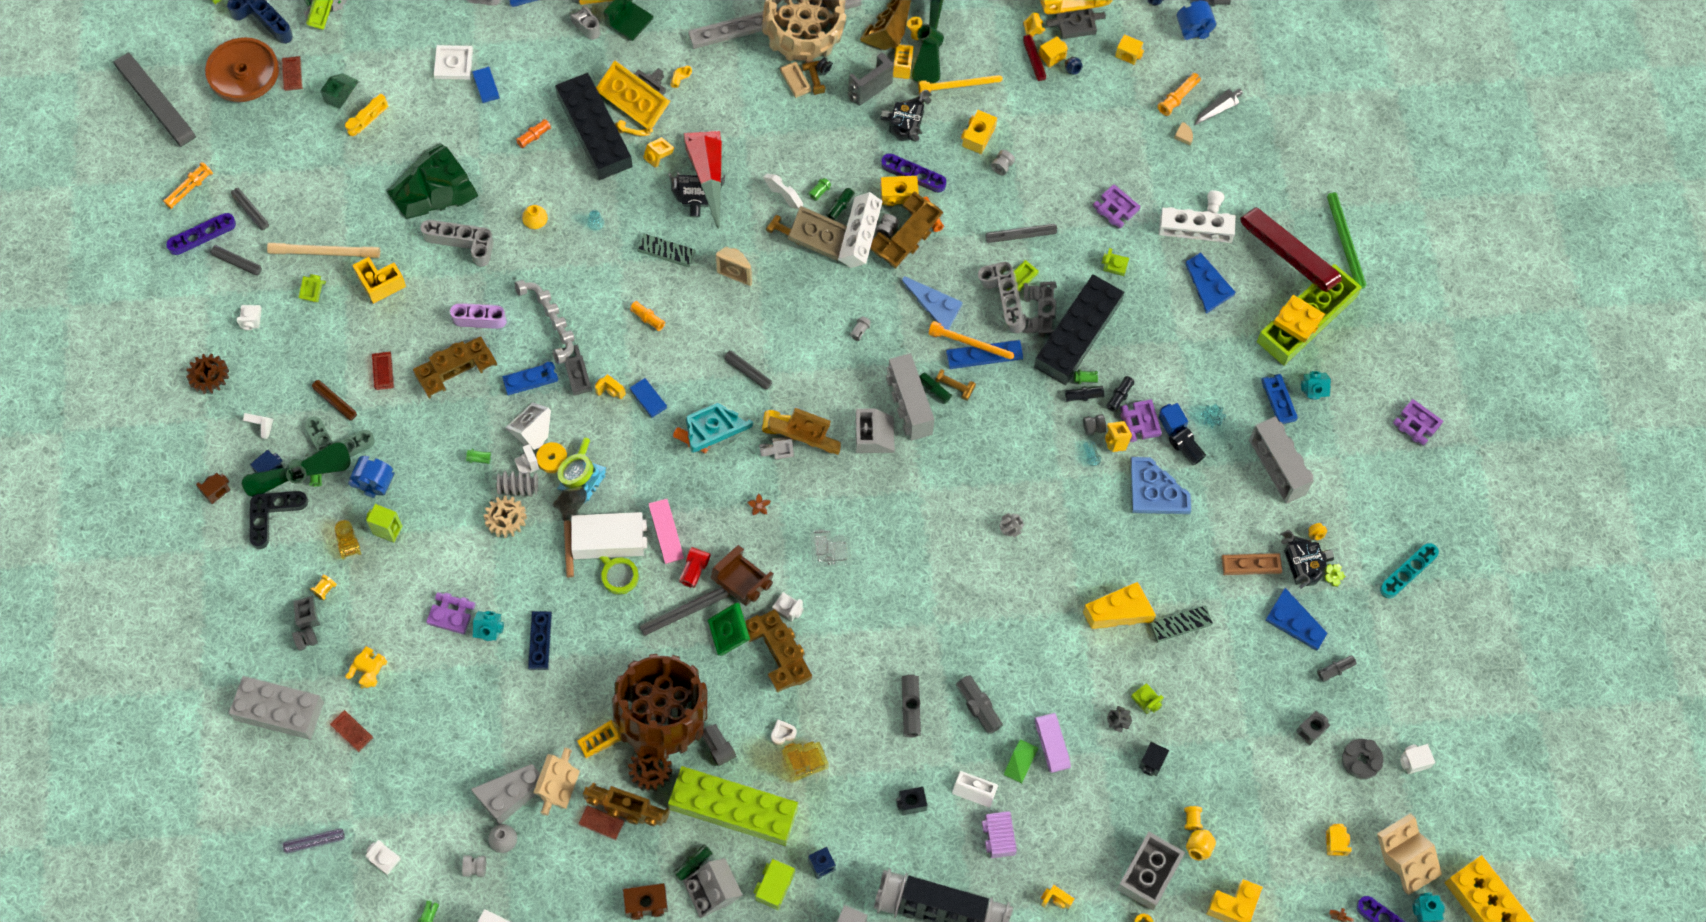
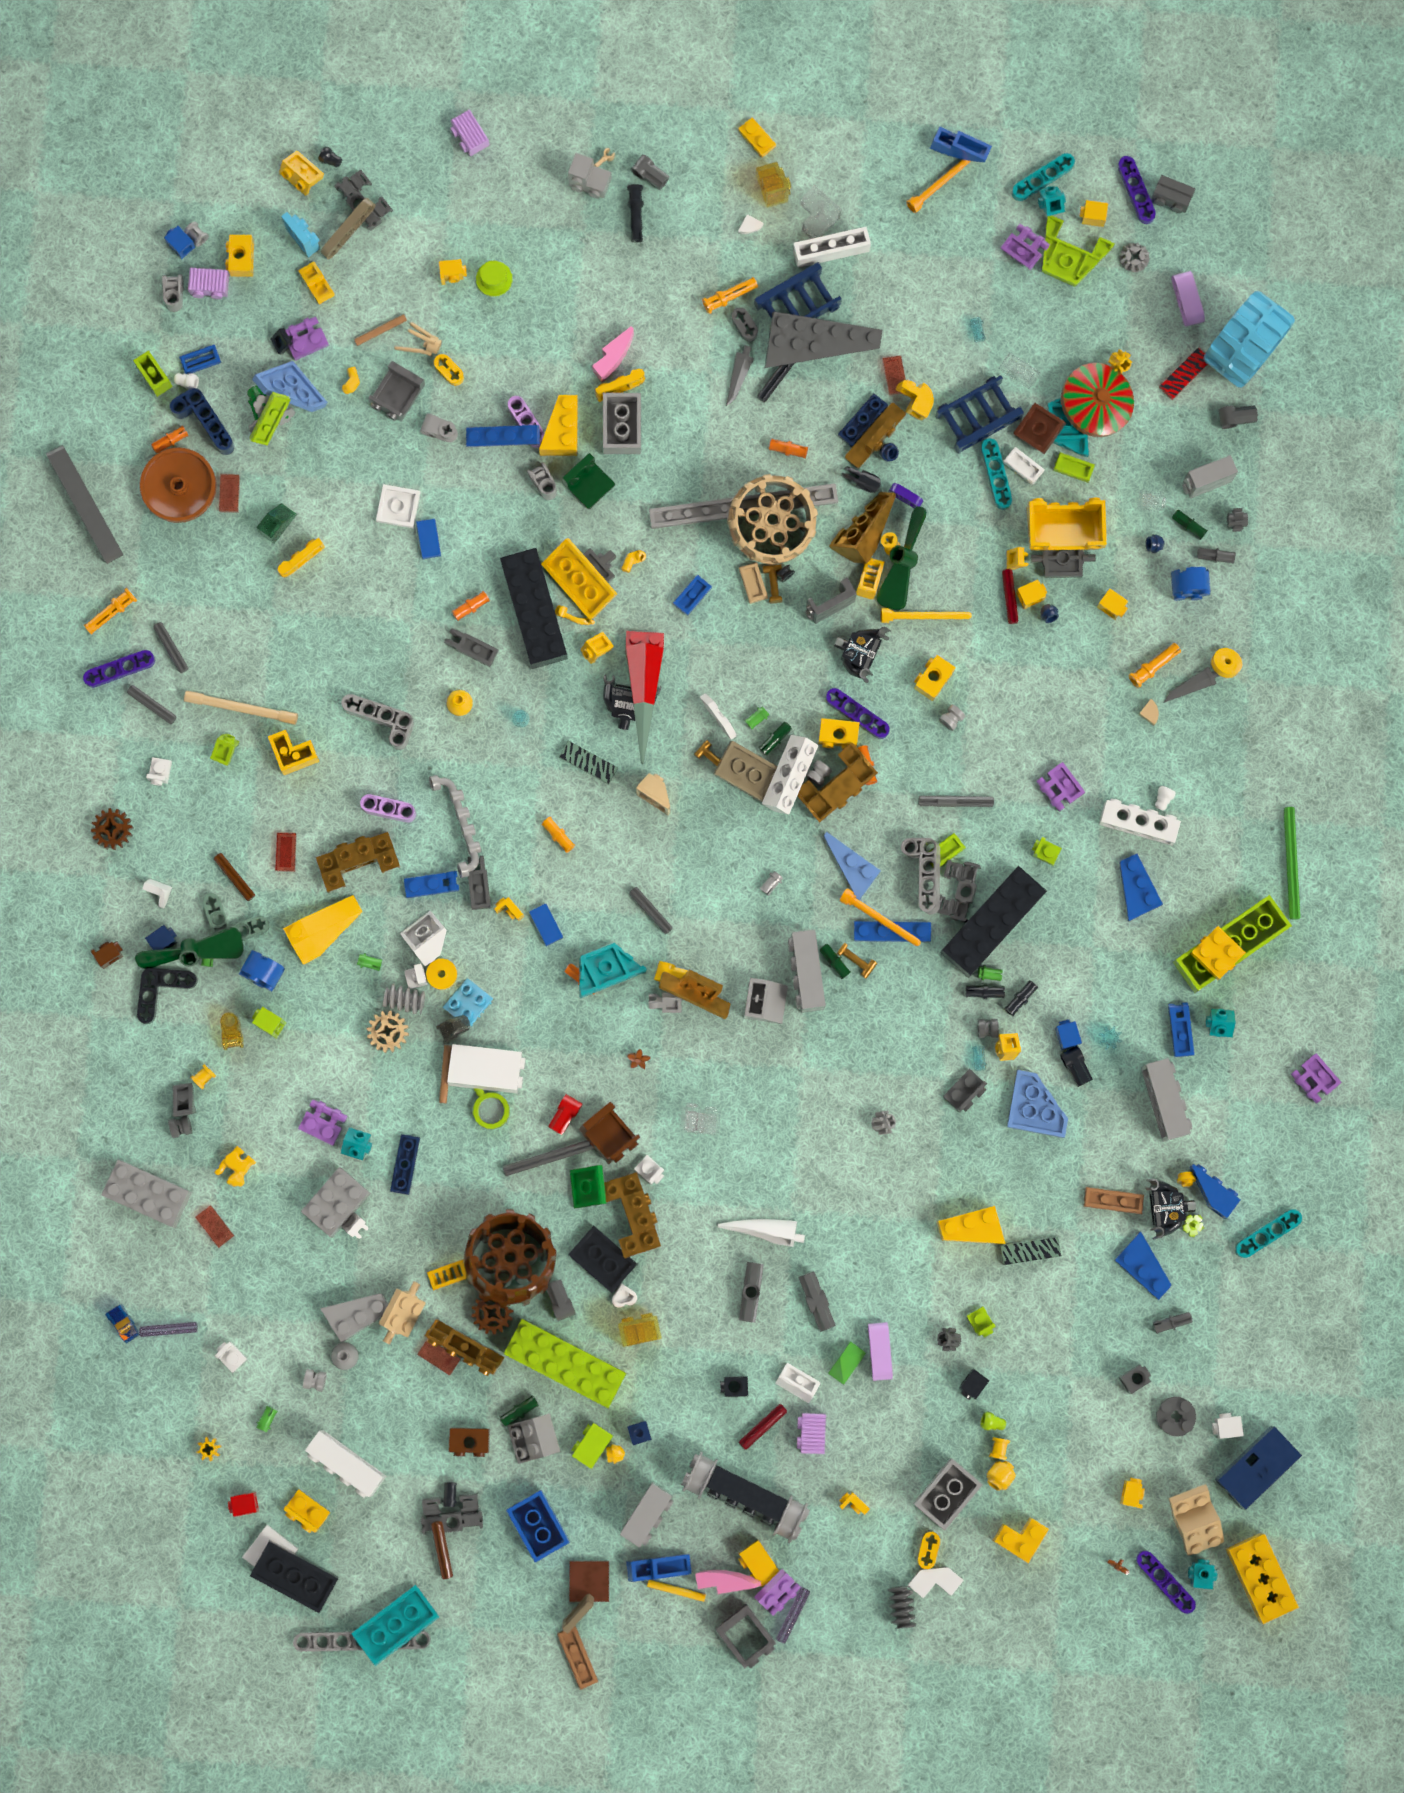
camera: 10 degrees right, 15 degrees up
(235, 32) = (169, 439): none -> orange axle
(264, 841) = (123, 1323): none -> clear blue leg
(422, 435) = (319, 930): none -> yellow wedge
(432, 184) = (358, 648): dark green wedge -> none
(473, 685) = (335, 1202): none -> light grey brick
(495, 705) = (354, 1224): none -> white tile
(540, 168) = (473, 647): none -> dark grey hinge
(577, 468) = (464, 993): lime piece -> none
(666, 531) = (542, 1073): bright pink slope -> none
(740, 96) = (692, 595): none -> blue plate
(755, 698) = (602, 1259): none -> black plate
(800, 889) = (615, 1453): none -> yellow plate
(922, 645) = (775, 1231): none -> white piece
(947, 837) = (763, 1426): none -> dark red axle
(1084, 485) = (965, 1090): none -> dark grey bracket
(1146, 419) = (1041, 1030): medium lavender plate -> none
(1180, 794) = (990, 1421): none -> lime piece
(1244, 82) = (1231, 657): none -> yellow piece
(1291, 249) = (1228, 870): dark red beam -> none
(1349, 541) = (1216, 1196): none -> blue slope
(1449, 809) = (1248, 1482): none -> dark blue brick

